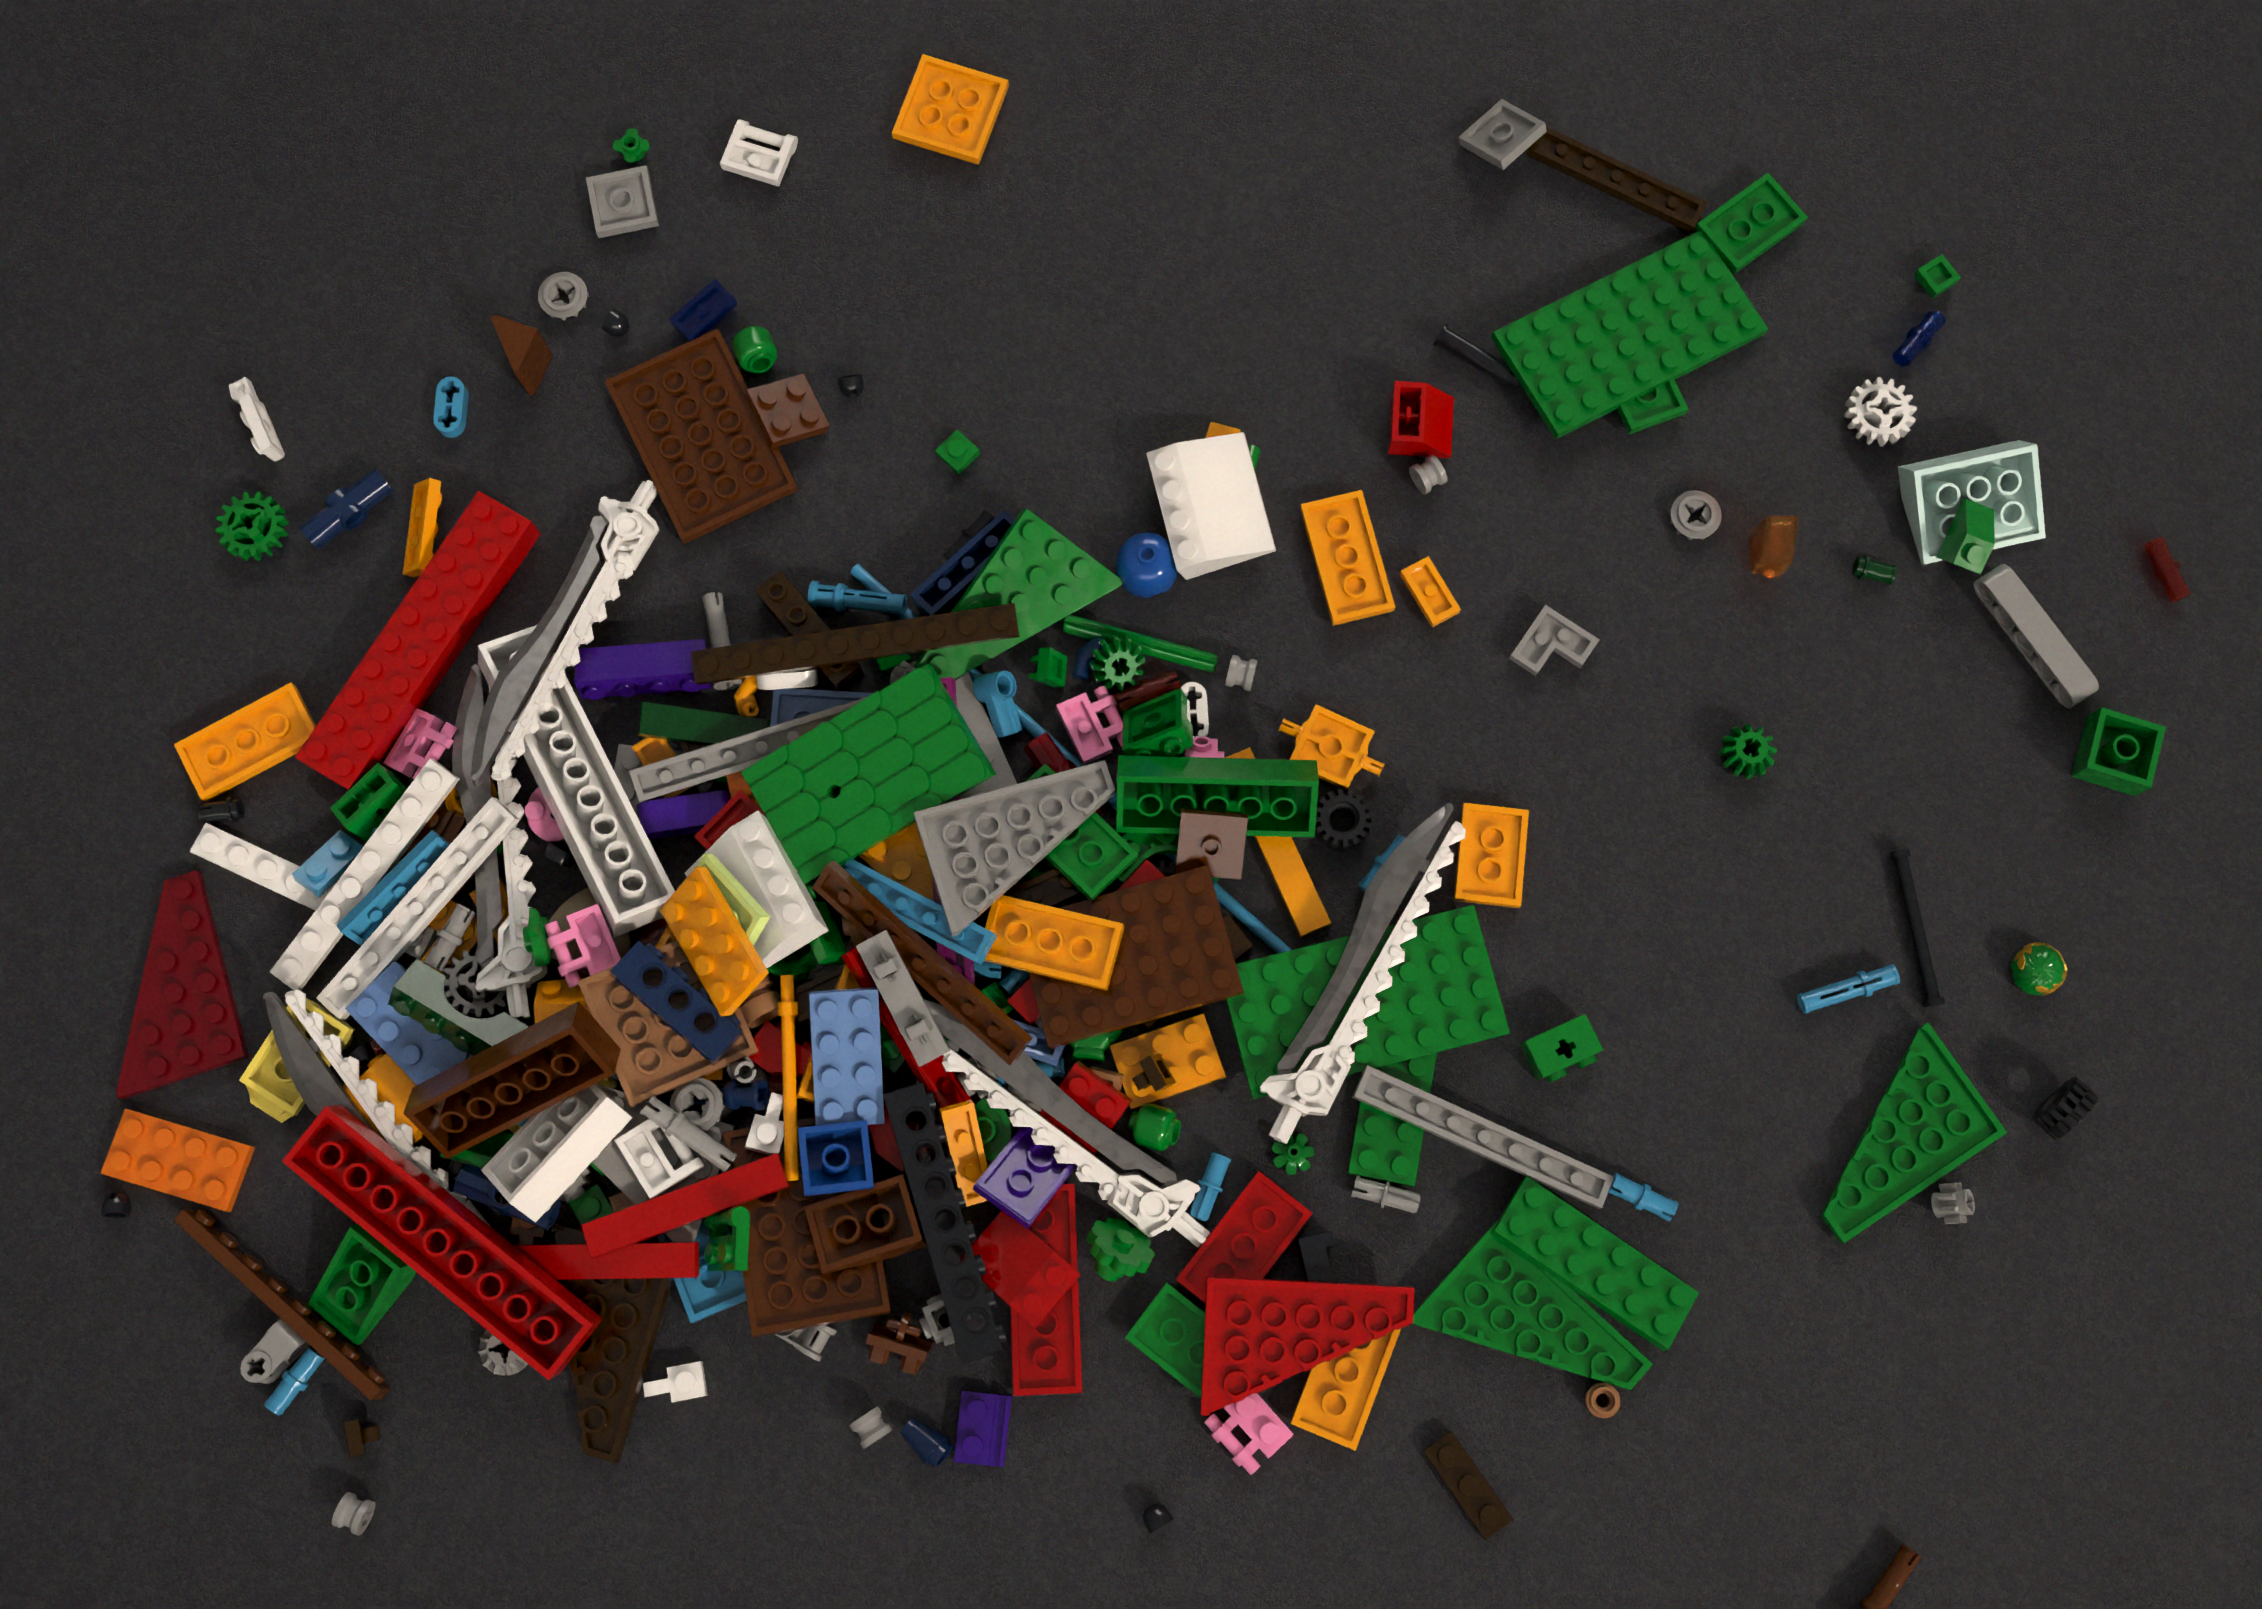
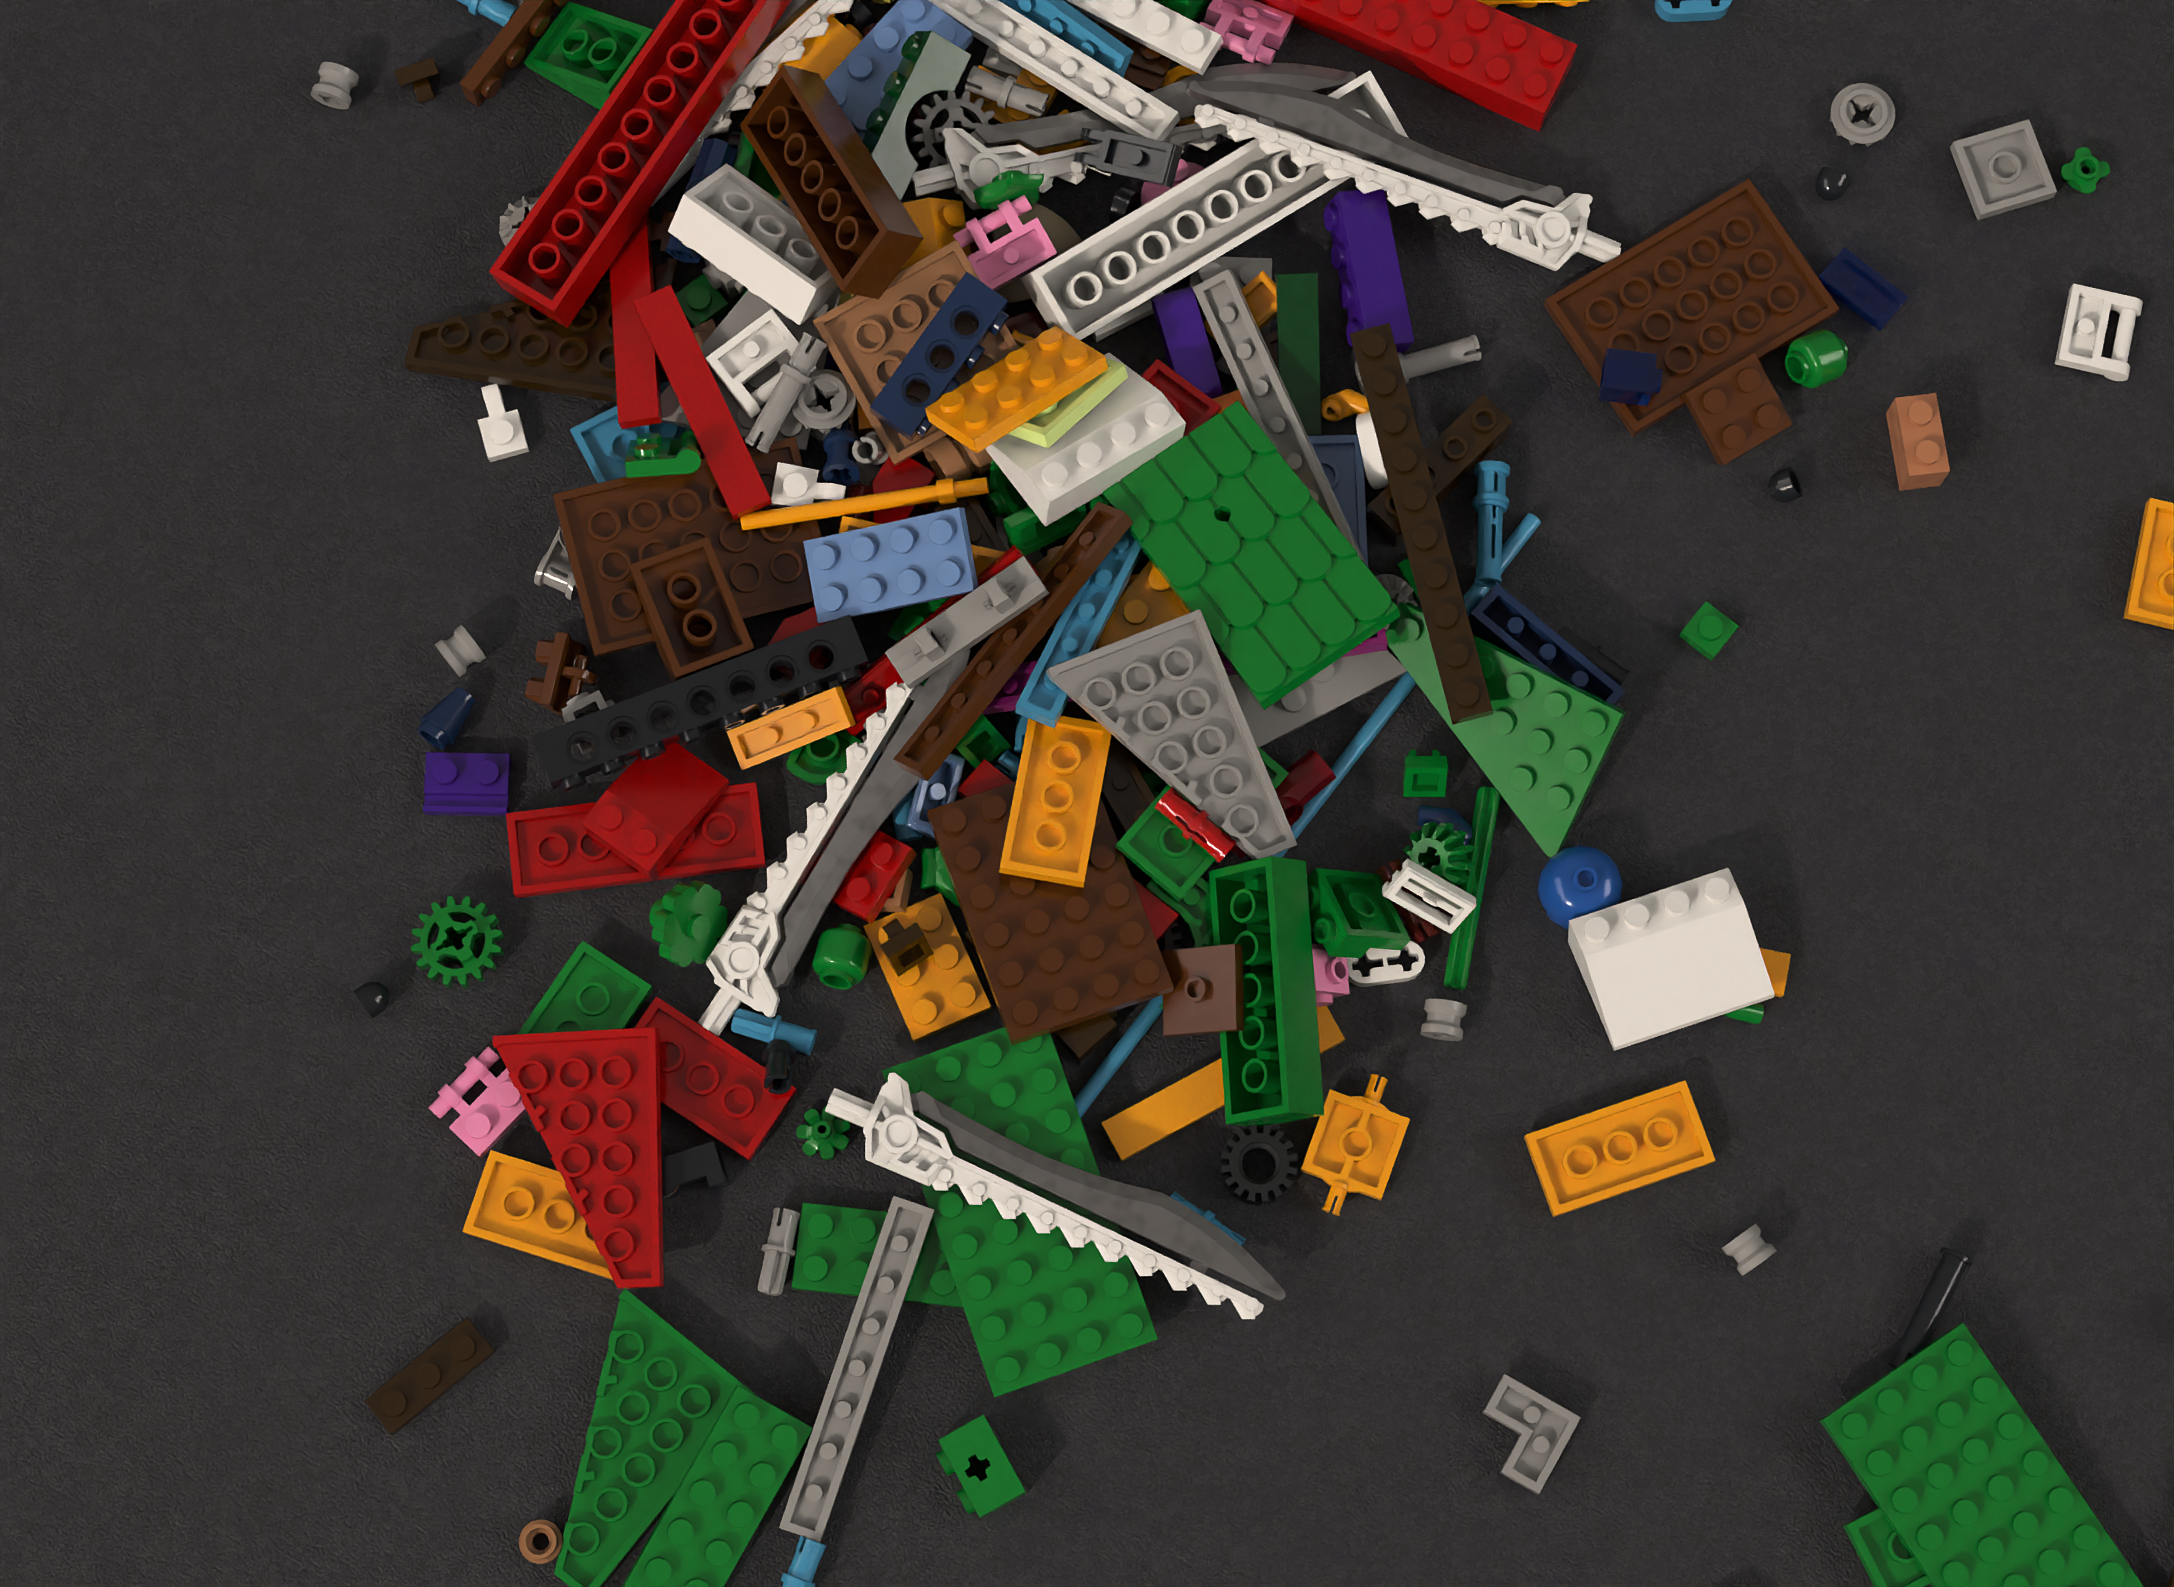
camera: 85 degrees right, 0 degrees up
(524, 837) = (1132, 156): none -> black hinge
(525, 351) = (1769, 73): reddish brown slope -> none
(754, 482) = (1629, 377): none -> clear blue brick
(829, 285) = (1917, 441): none -> nougat brick
(835, 1158) = (767, 567): blue slope -> none
(997, 692) = (1369, 712): dark azure piece -> none
(1023, 1178) = (765, 799): tile -> none
(1083, 834) = (1195, 825): none -> red pin
(1084, 727) = (1351, 824): bright pink plate -> none
(1102, 1450) = (443, 950): none -> green gear
(1147, 665) = (1433, 891): none -> white tile
(1235, 1182) = (778, 1060): none -> black pin
(1420, 420) = (1823, 1234): red slope -> none
(1430, 591) = (1583, 1262): light orange plate -> none
(1491, 855) = (1229, 1363): light orange plate -> none

